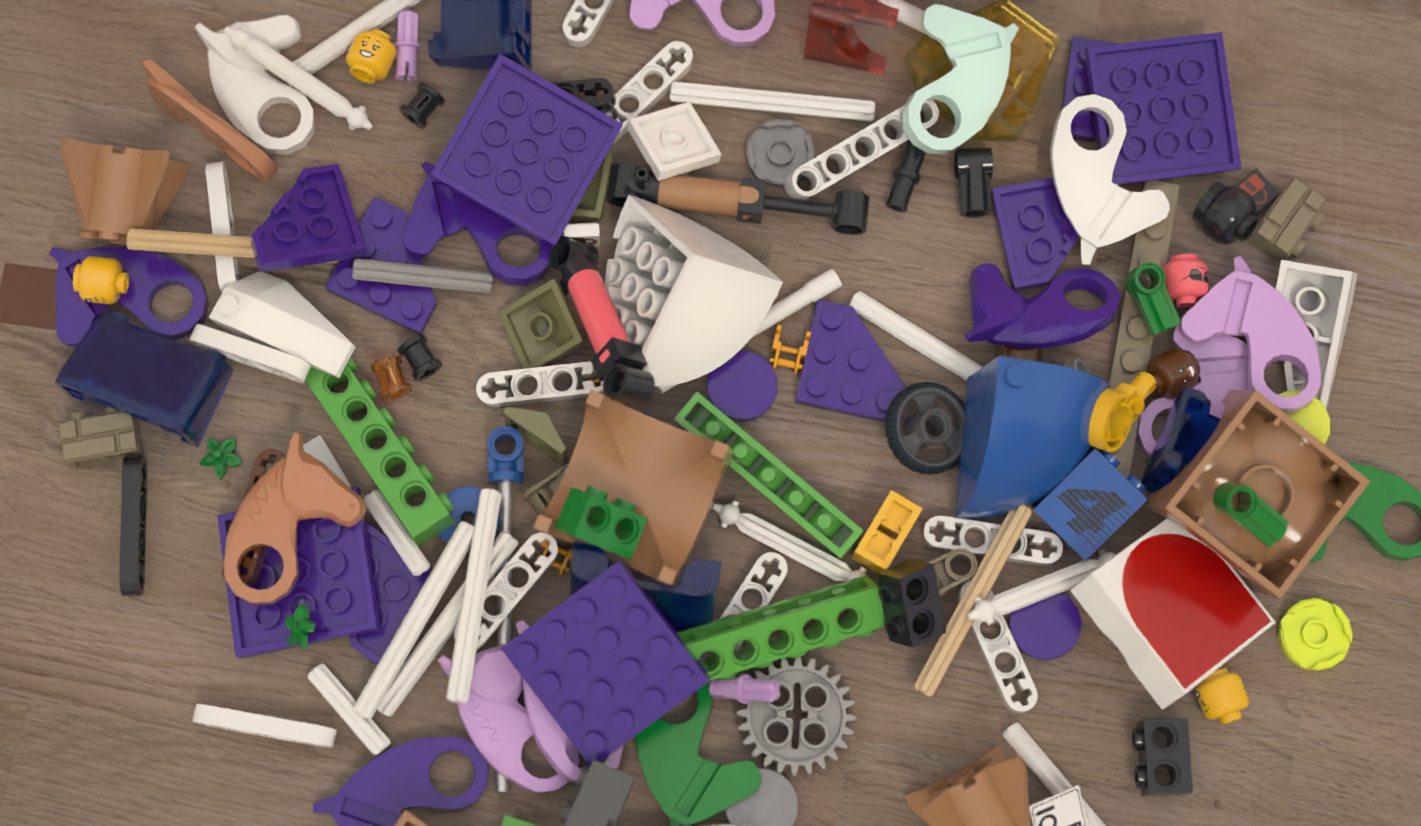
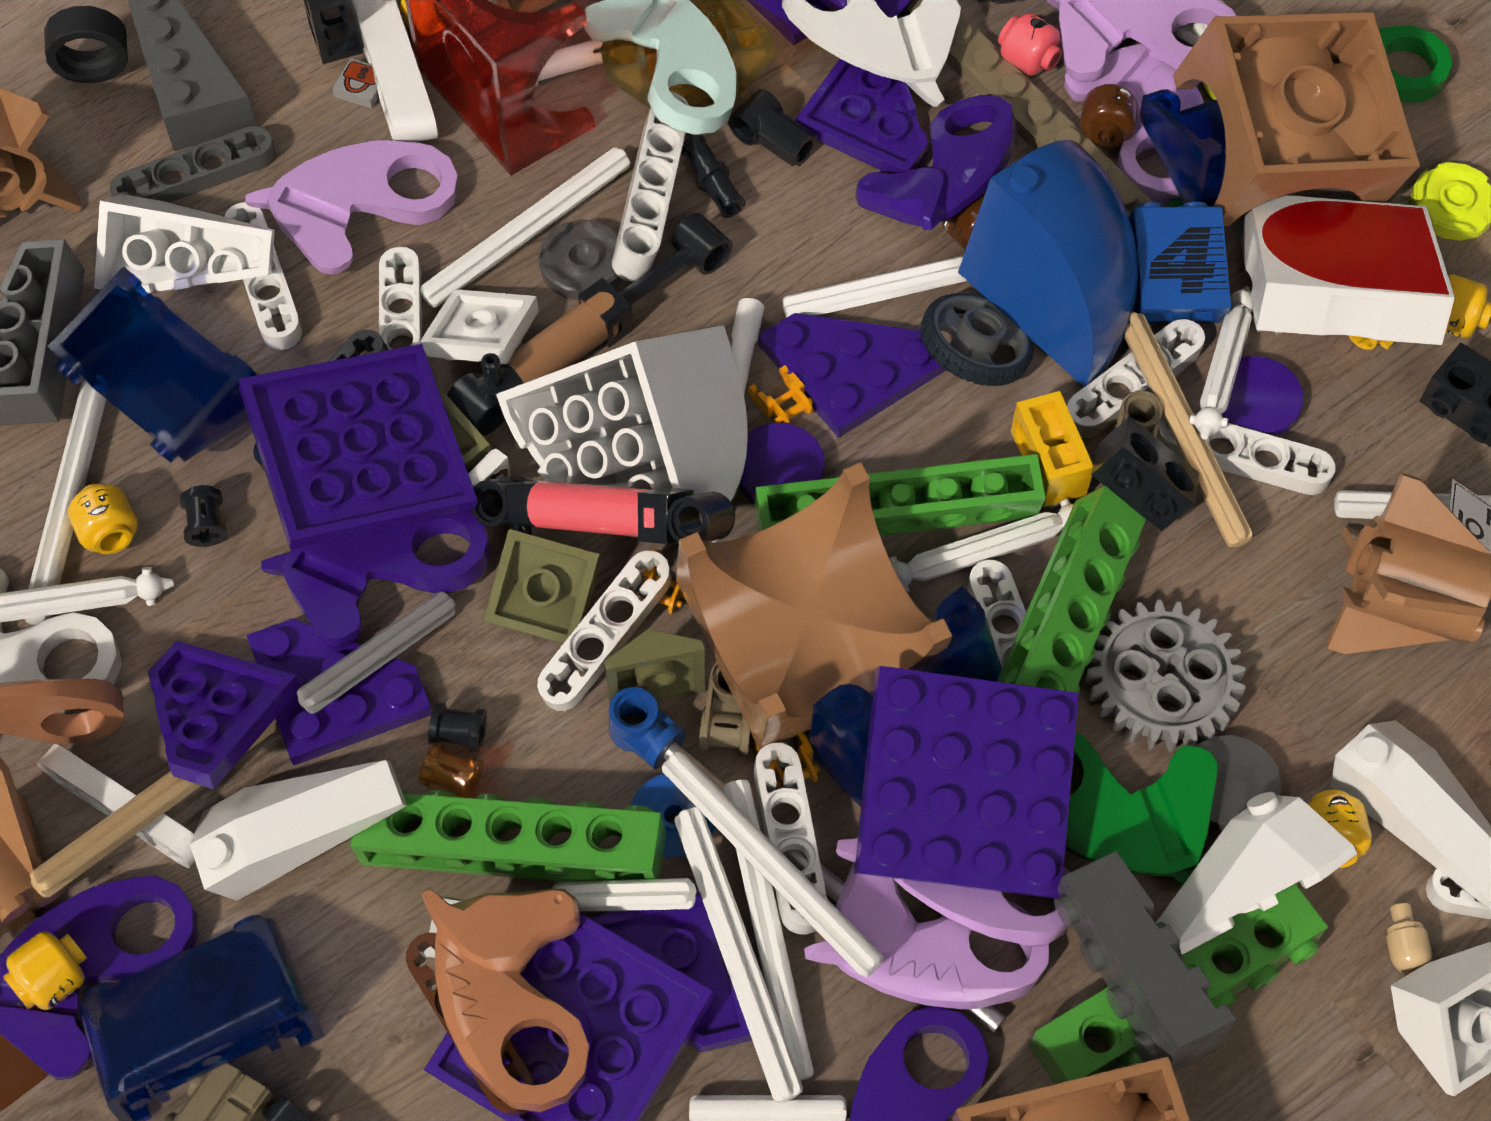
camera: 45 degrees left, 15 degrees down
(221, 456) = (361, 1017): green plant -> none
(250, 353) = (288, 878): white beam -> none
(299, 627) = (639, 1070): green plant -> none
(407, 45) = (130, 480): lavender axle -> none
(602, 521) = (818, 656): green brick -> none
(745, 689) = (1105, 685): lavender axle -> none
(1117, 411) = (1114, 159): yellow pin -> none
(1155, 302) = (1013, 66): green piece -> none
(1251, 512) = (1320, 110): green piece -> none

